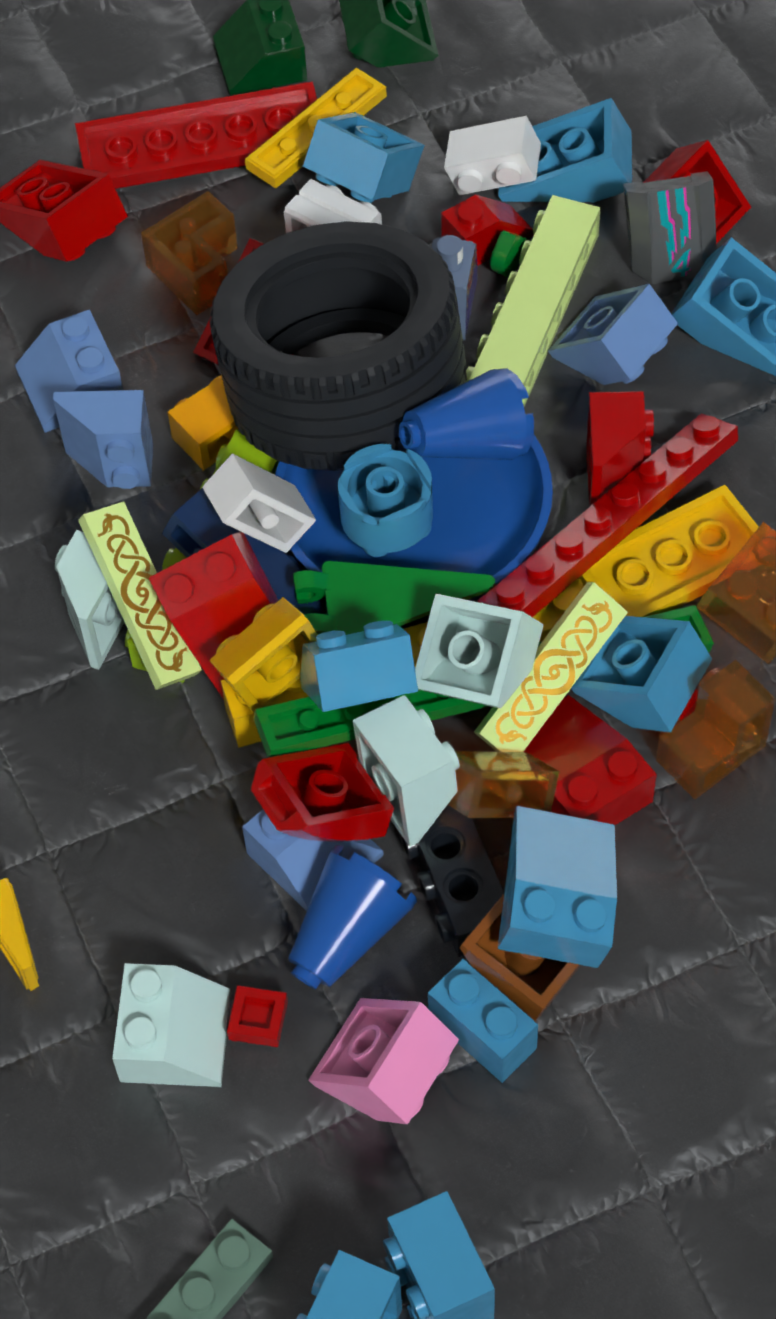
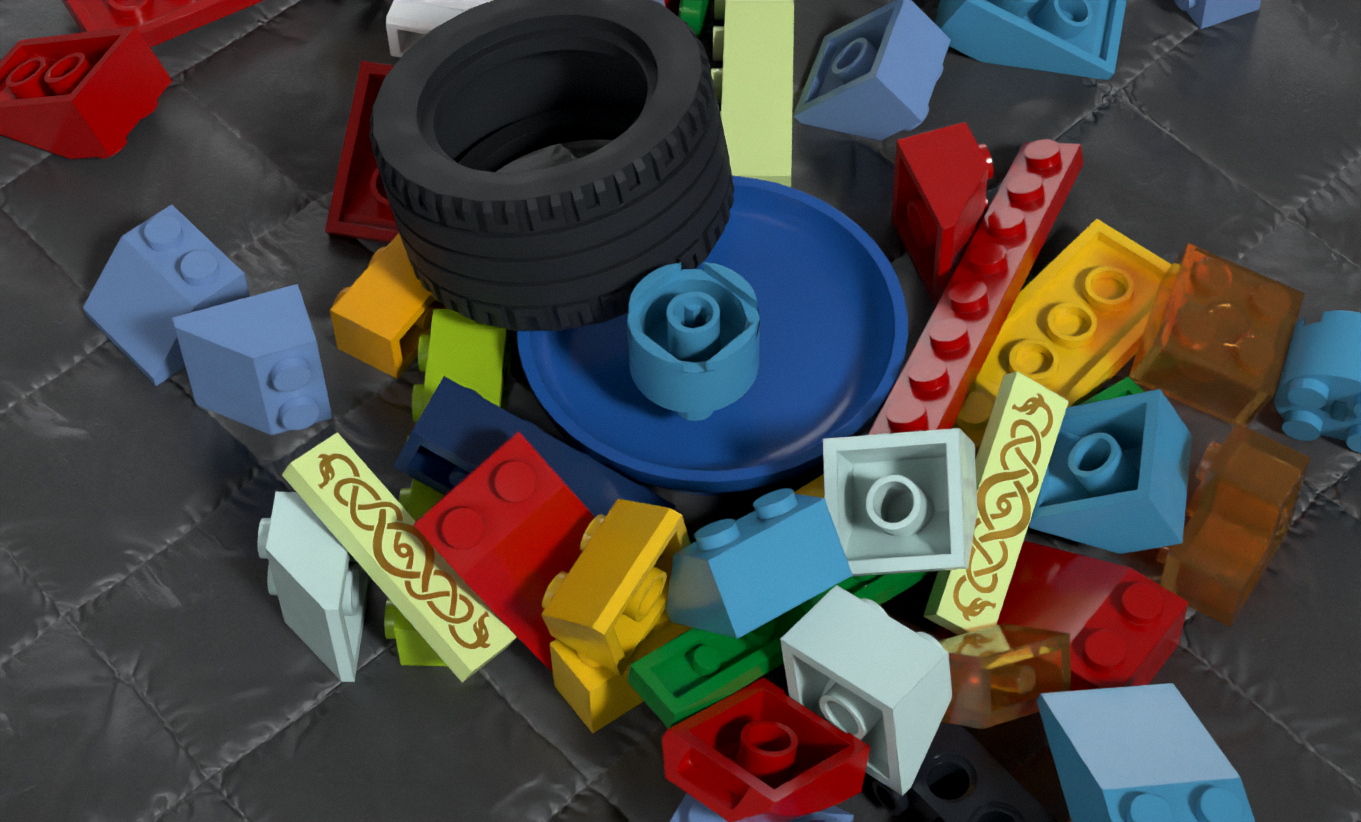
camera: 20 degrees left, 5 degrees down
(190, 250) = (281, 102): clear orange brick -> none
(258, 503) = (525, 387): white brick -> none
(374, 593) = (727, 468): green flag -> none
(472, 420) = (777, 204): blue cone -> none

